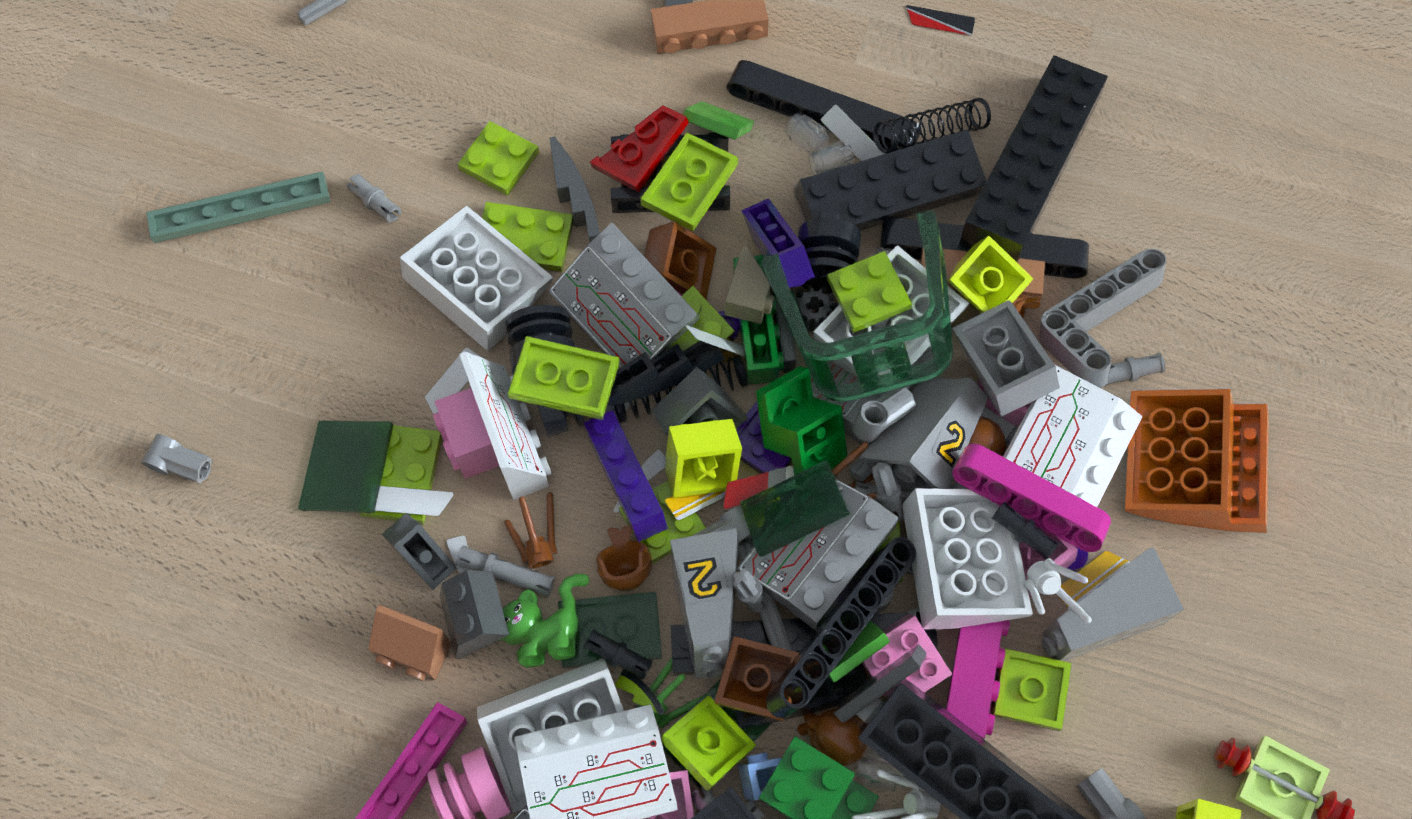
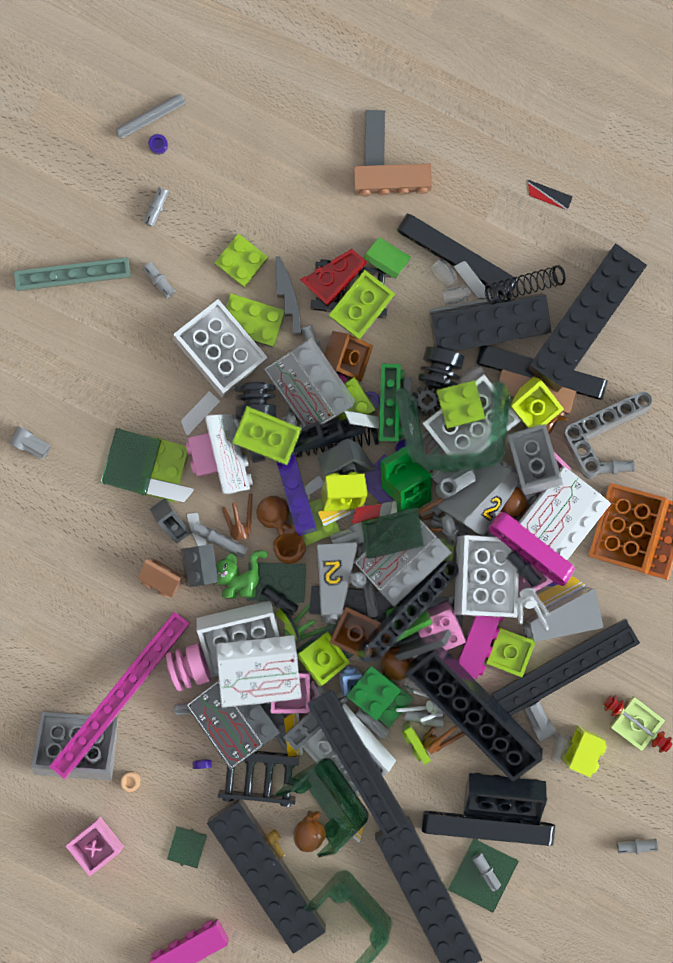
camera: 10 degrees right, 20 degrees up
(360, 25) = (158, 144): none -> dark purple tile
(362, 102) = (156, 206): none -> light grey pin
(590, 513) = (273, 512): none -> dark orange hat
(748, 291) = (385, 391): dark tan slope -> none
(775, 236) = (410, 359): dark purple brick -> none
(1135, 702) = (566, 667): none -> black plate

